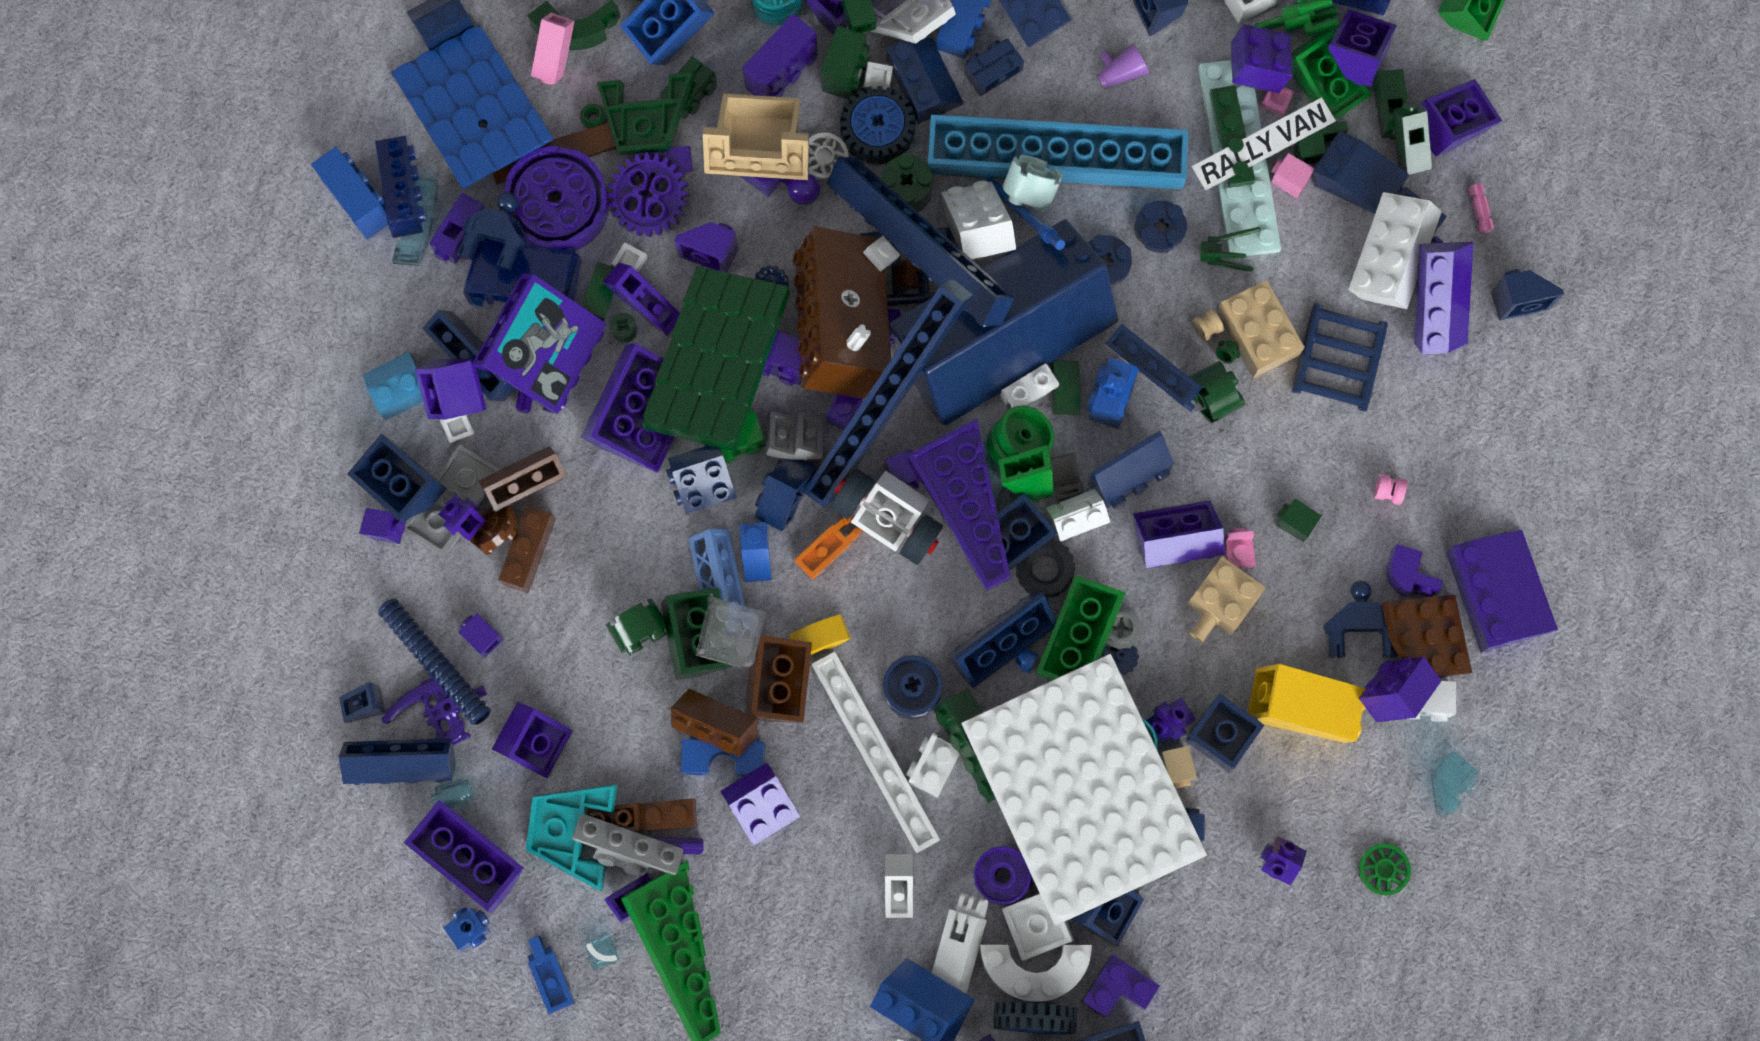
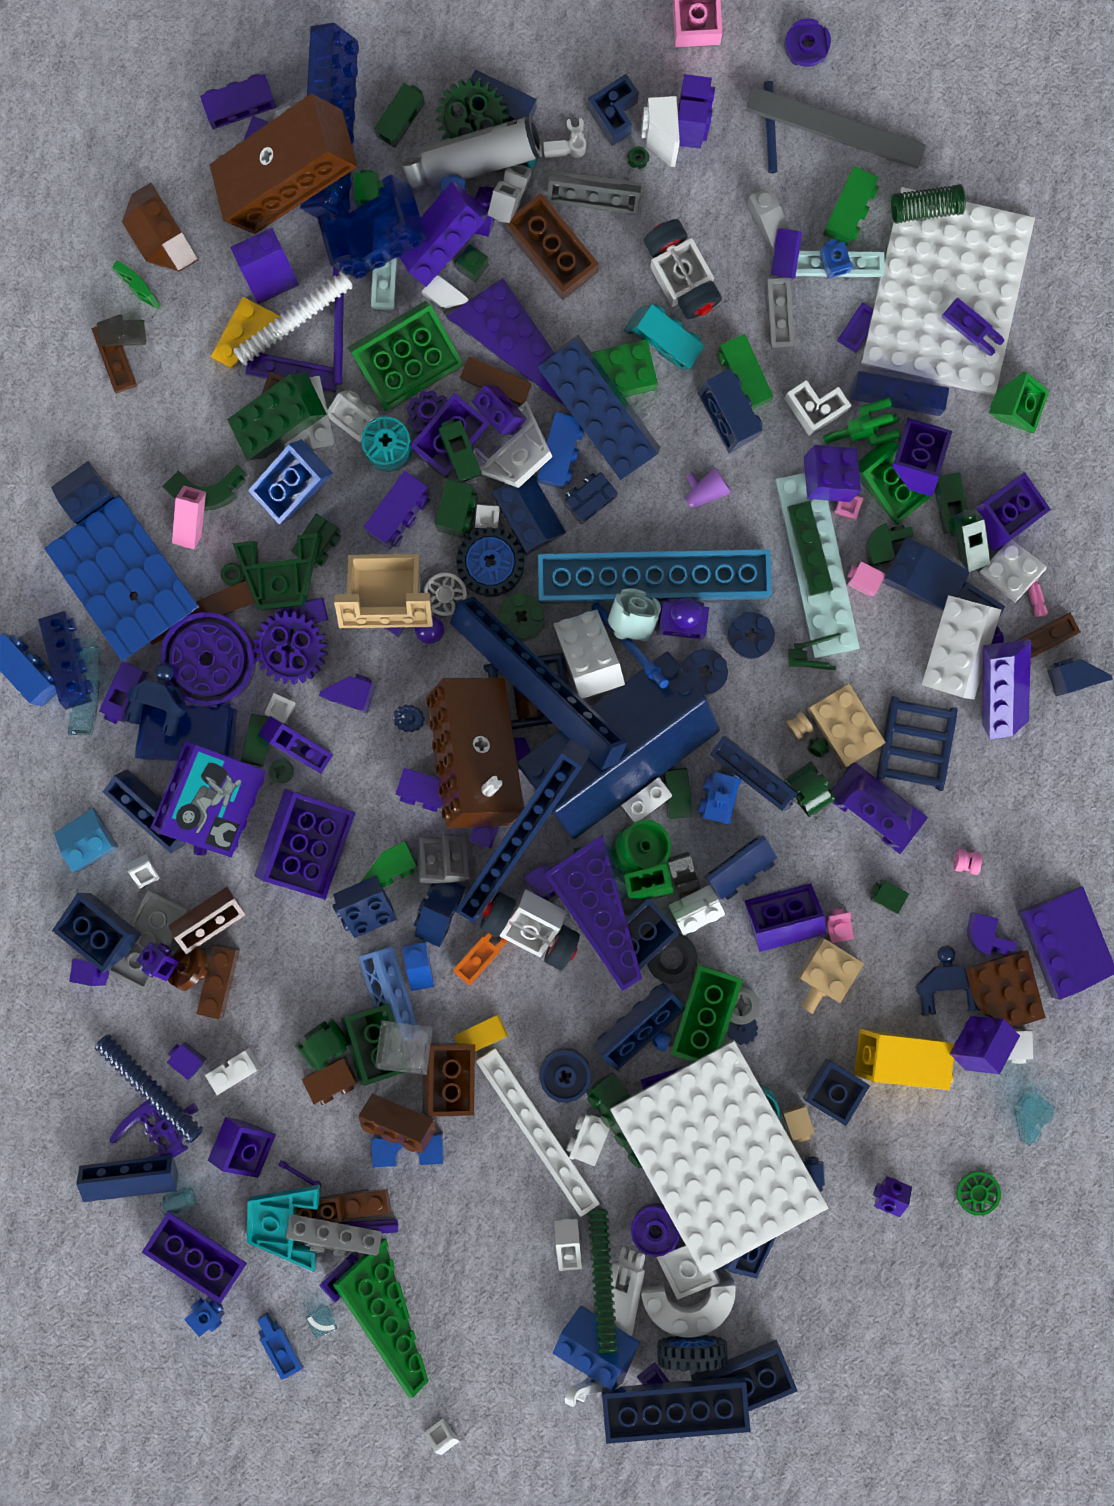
camera: 10 degrees left, 10 degrees up
(362, 703) = (91, 1128): dark blue slope -> none
(450, 388) = (133, 846): dark purple slope -> none
(528, 655) = (233, 1071): none -> white piece
(591, 775) = (284, 1165): none -> dark purple hinge
(642, 672) = (330, 1080): none -> reddish brown brick
(715, 358) = (366, 800): dark green piece -> none
(760, 803) = (443, 1189): brick -> none
(881, 253) = (505, 694): white plate -> none
(936, 925) = (602, 1281): none -> dark green piece
(1086, 195) = (683, 618): none -> dark purple brick
(1119, 980) = (757, 1310): dark purple brick -> none
(1166, 722) = (789, 1084): dark purple brick -> none
(1265, 143) = (840, 553): white sticker -> none
(1296, 418) = (878, 807): none -> dark purple windscreen
(1457, 179) = (1013, 570): none -> white plate
(1498, 252) = (1052, 634): none -> reddish brown tile

